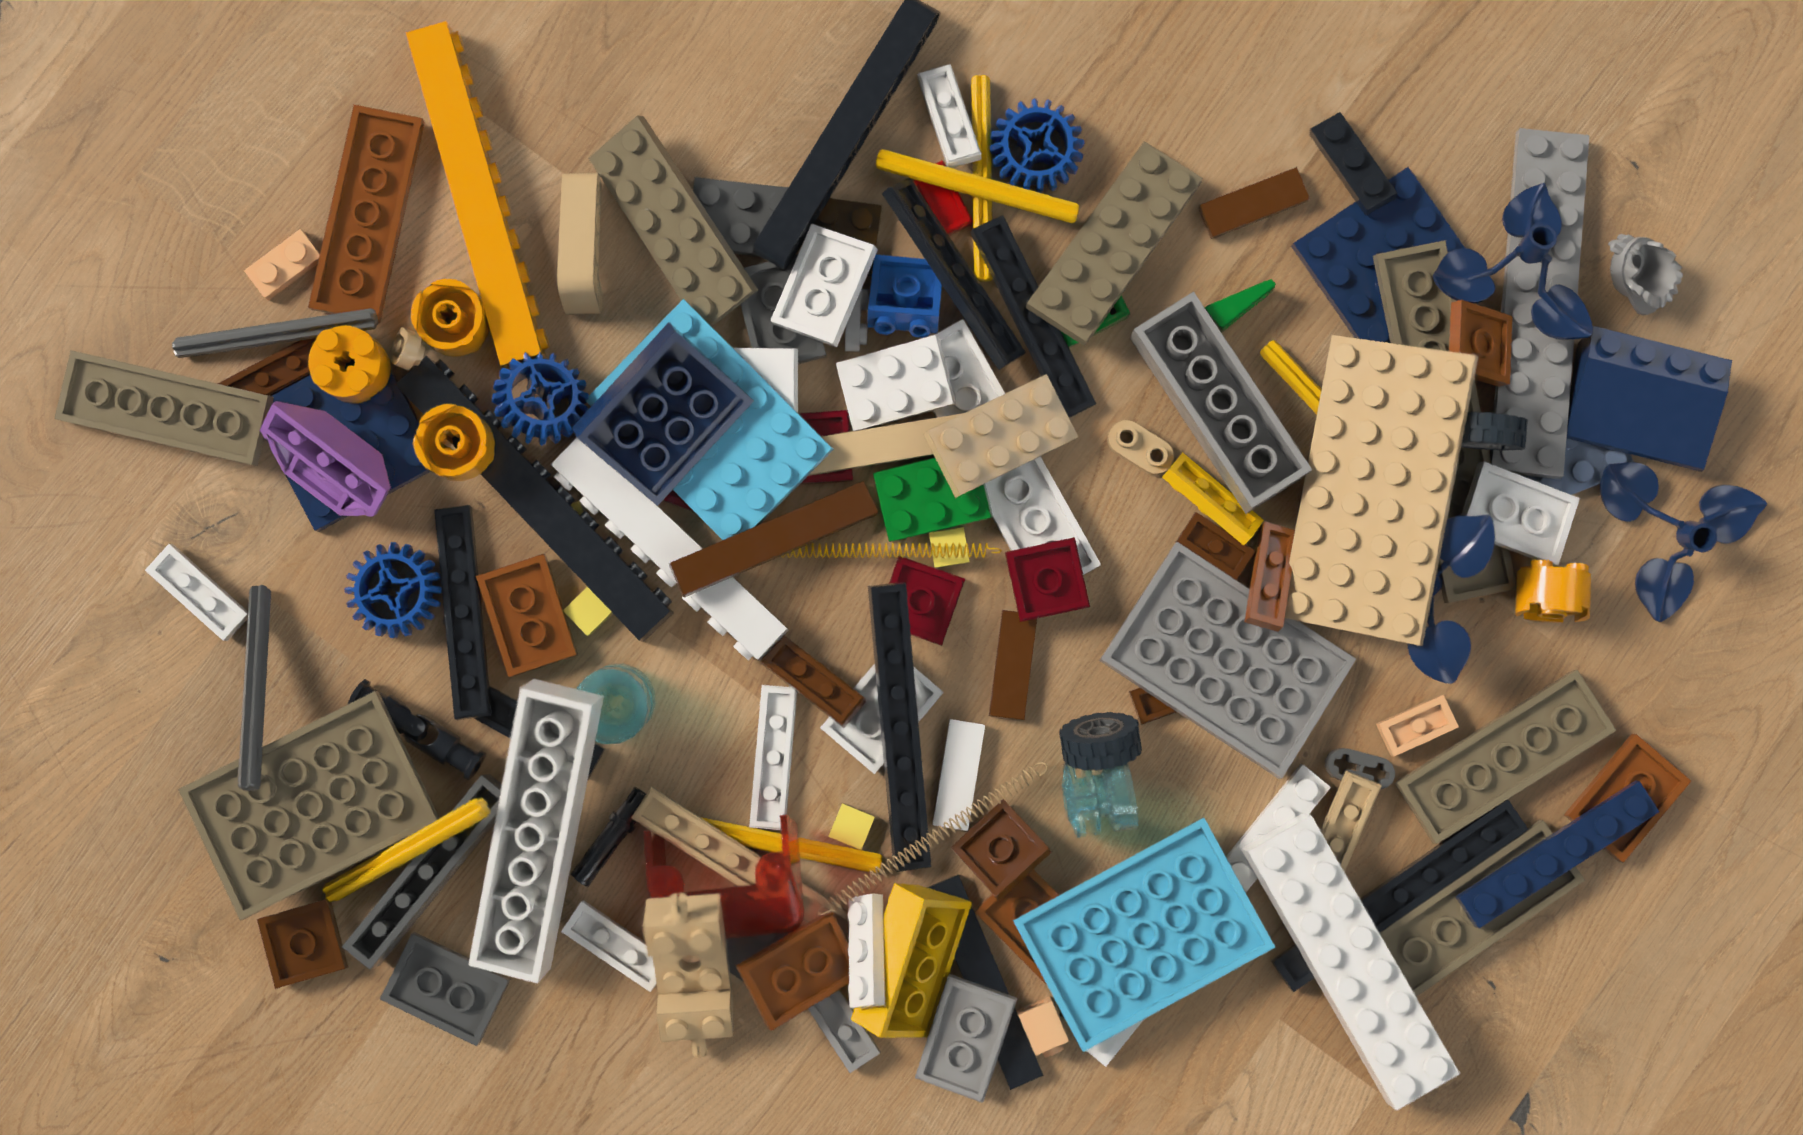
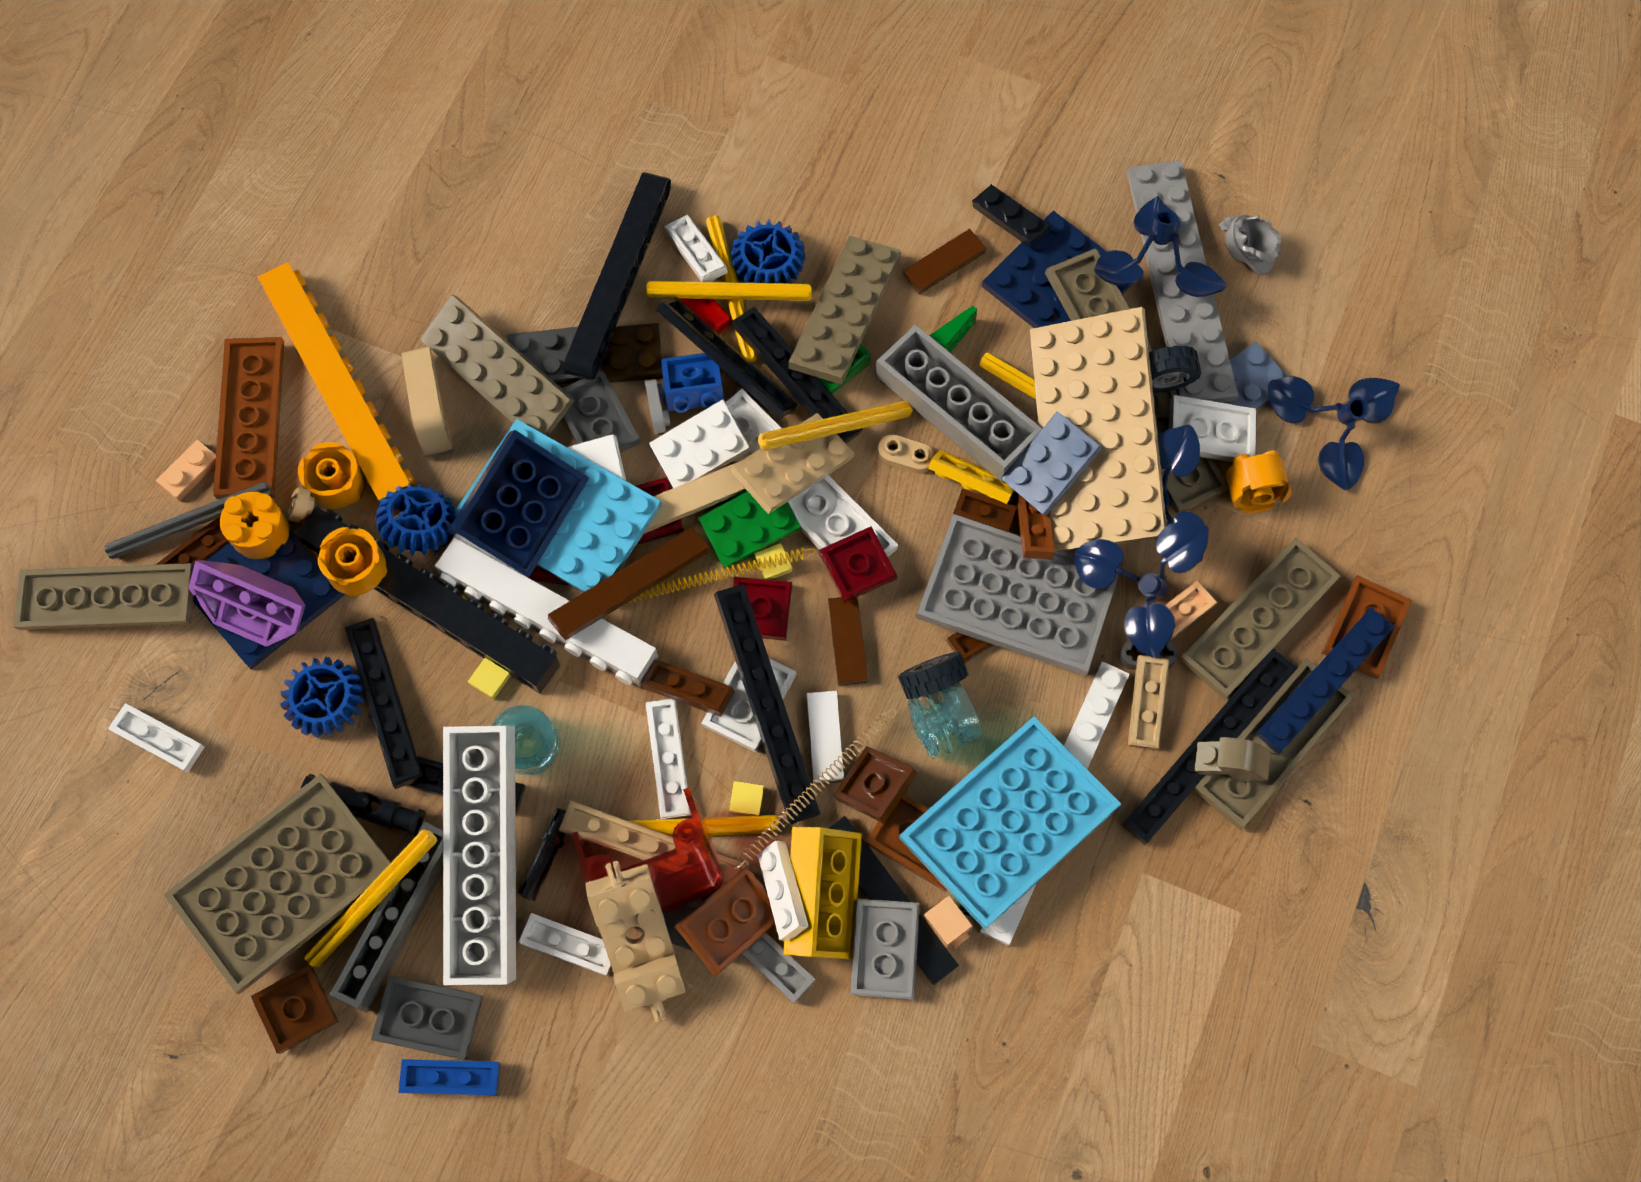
camera: 15 degrees left, 15 degrees down
(254, 688) = (217, 799): dark grey axle -> none
(457, 1060) = (449, 1077): none -> blue plate
(527, 615) = (438, 691): dark orange plate -> none
(824, 285) = (626, 384): white plate -> none
(1063, 399) = (834, 425): none -> yellow axle
(1310, 515) = (1051, 463): none -> sand blue plate
(1350, 961) = (1186, 802): white brick -> none
(1418, 926) = (1233, 756): none -> dark tan brick
(1433, 669) = (1152, 625): none -> dark blue plant
(1483, 334) = (1157, 315): dark orange plate -> none
(1647, 398) = (1283, 327): dark blue slope -> none

